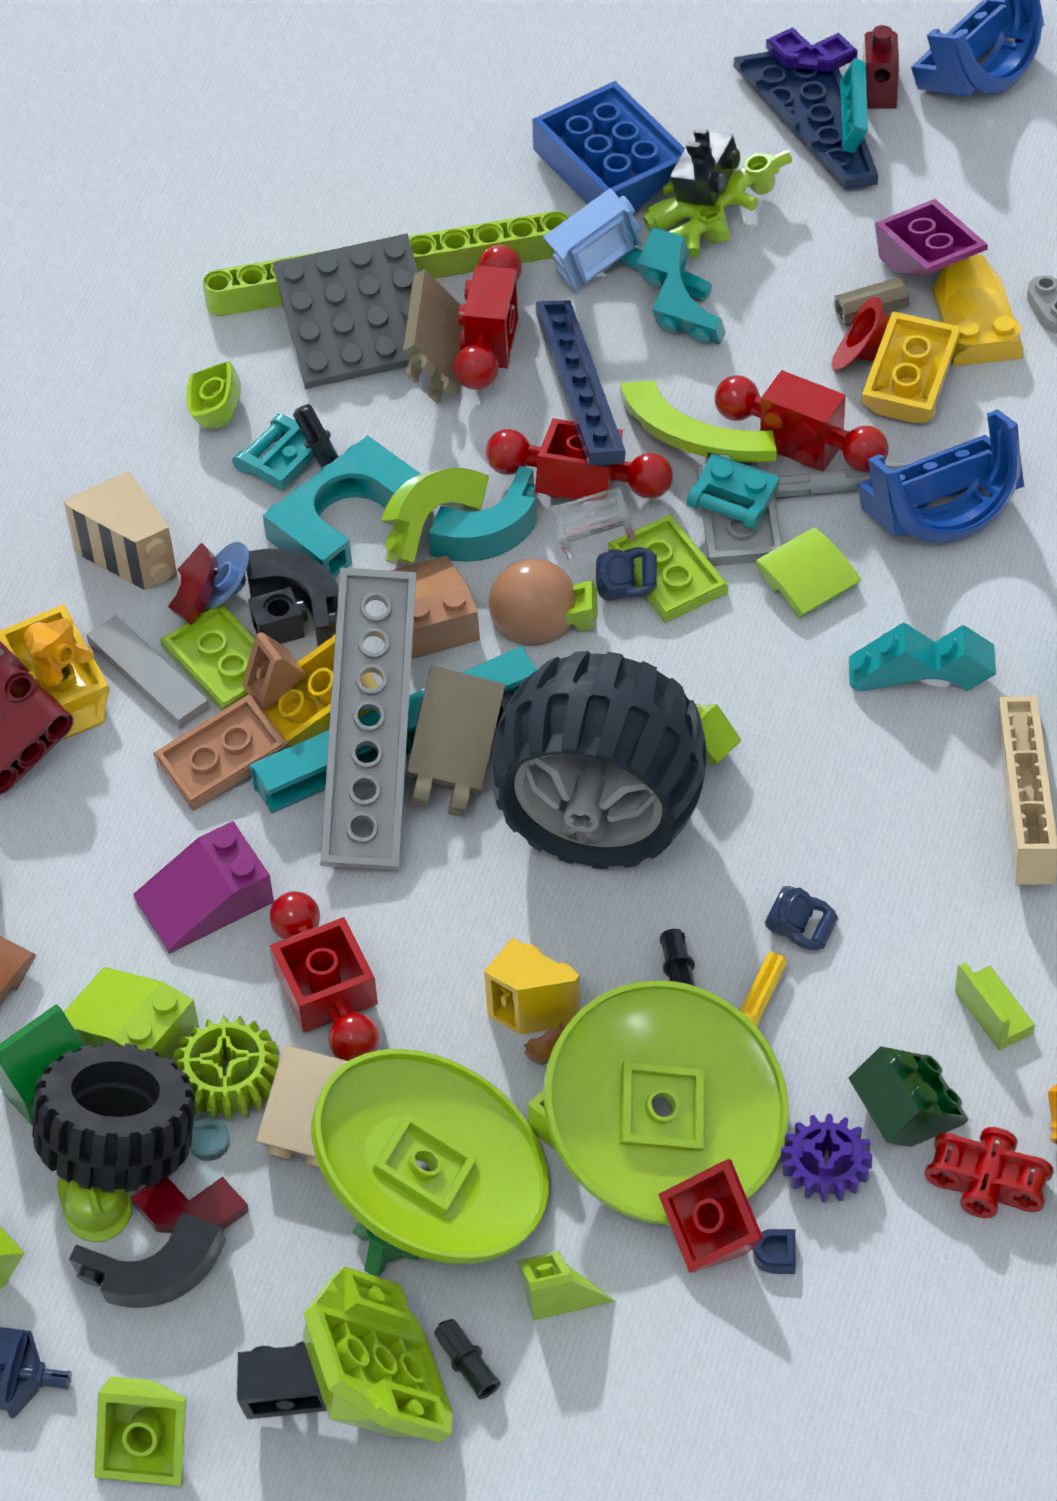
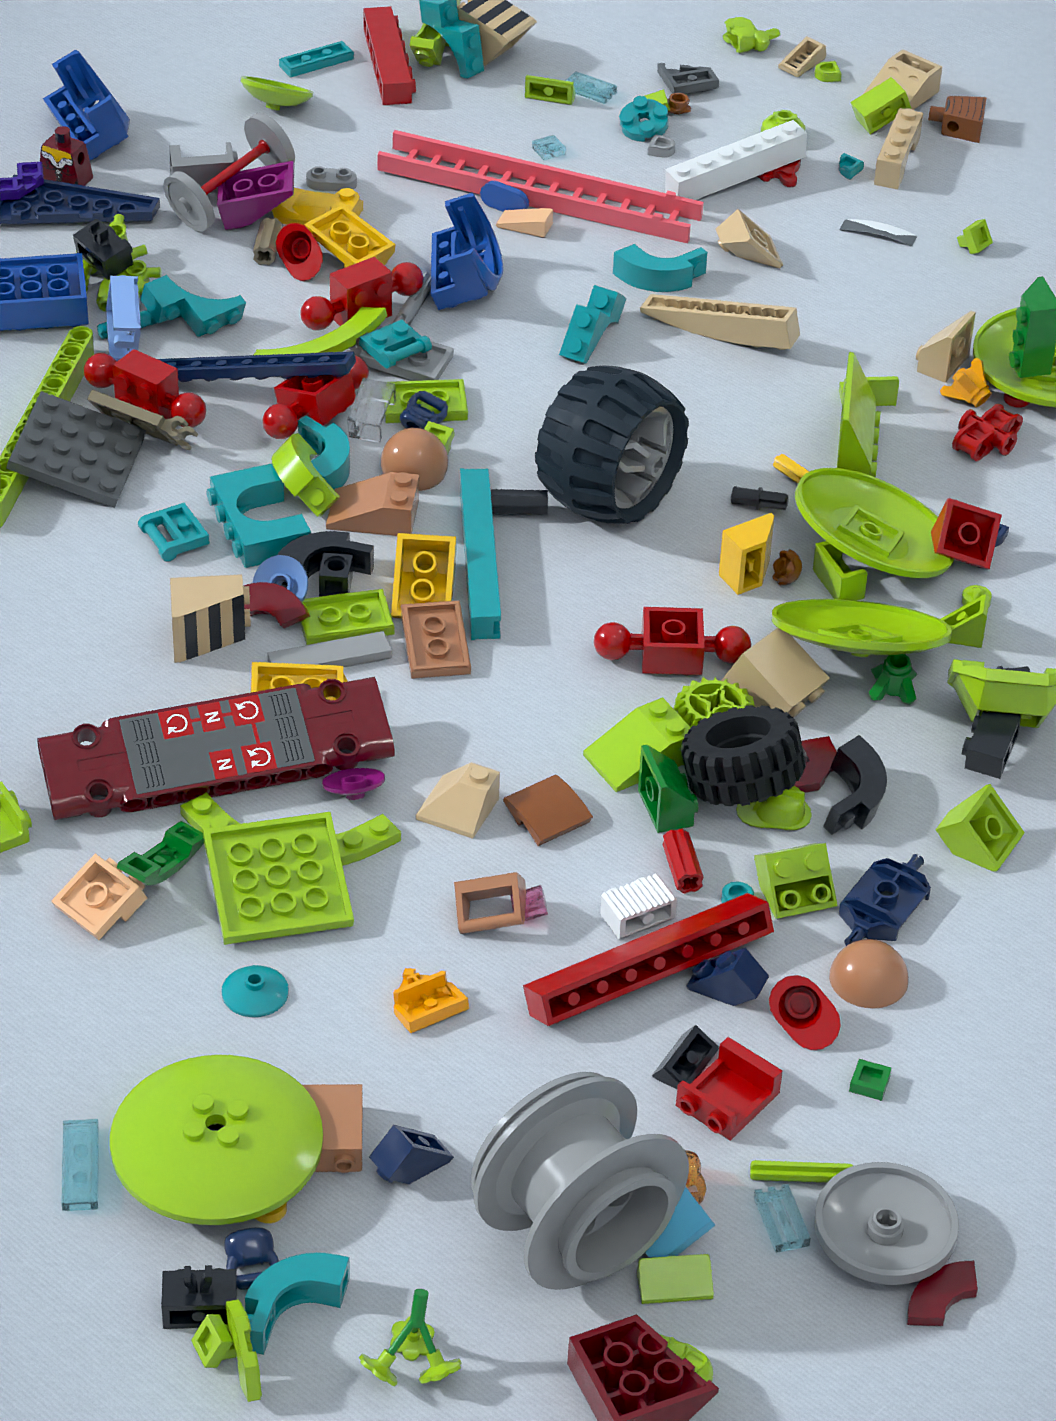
camera: 70 degrees left, 10 degrees down
(54, 648) = (300, 667): light orange rock -> none
(205, 888) = (553, 678): magenta slope -> none
(213, 395) = (97, 538): lime piece -> none
(270, 671) = (398, 580): nougat slope -> none
(316, 437) = (192, 500): black axle -> none
(348, 734) = (490, 556): light grey plate -> none
(453, 736) = (516, 523): dark tan tile -> none
(622, 1278) = (973, 592): none -> lime tile
(791, 914) = (752, 440): dark blue piece -> none
(805, 1157) = (939, 484): dark purple gear -> none
(808, 571) = (479, 342): lime slope -> none
(853, 105) = (97, 178): teal tile -> none
(860, 1001) = (858, 422): none -> lime slope
(867, 197) = (191, 202): none -> light grey piece
(907, 1096) = (918, 441): dark green slope -> none
(928, 171) = (201, 167): none -> light grey panel

